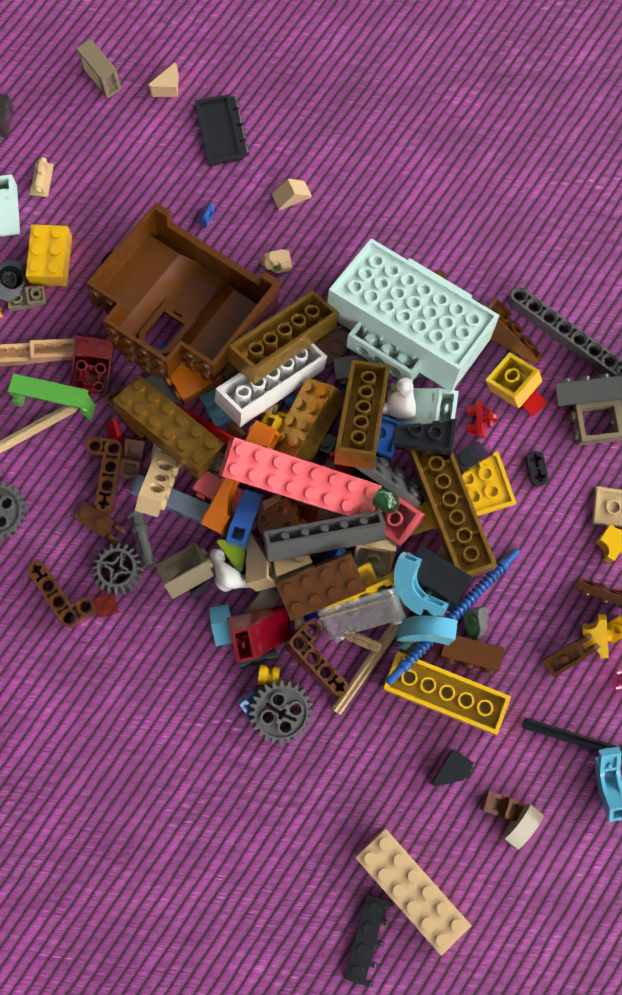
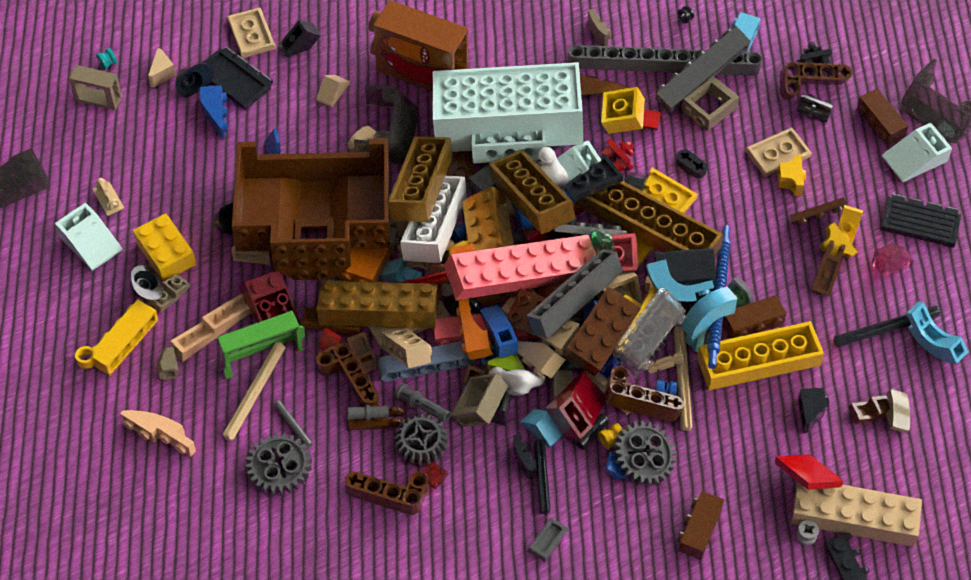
camera: 35 degrees left, 20 degrees down
(34, 482) = (292, 423): none -> dark grey bar
(90, 517) = (368, 412): none -> dark grey pin
(131, 45) = (106, 58): none -> teal wheel
(151, 726) = (548, 539): none -> dark grey tile
(182, 111) = (191, 79): none -> black piece
(183, 145) = (212, 104): none -> blue slope
(183, 649) = (523, 458): none -> black slope
(188, 669) = (542, 477): none -> black axle
(204, 539) = (472, 371): none -> reddish brown slope
(266, 94) = (251, 32): none -> tan tile
(277, 806) = (700, 524): none -> reddish brown brick
(299, 127) = (299, 38): none -> black slope
(315, 271) = (402, 125): none -> clear smoke windscreen
(348, 669) = (669, 388): none -> blue wheel
(358, 873) = (805, 537): none -> light grey wheel
(380, 202) = (415, 44): none -> dark orange brick
(396, 831) = (808, 472): none -> red tile
(560, 283) = (598, 28): none -> dark tan slope

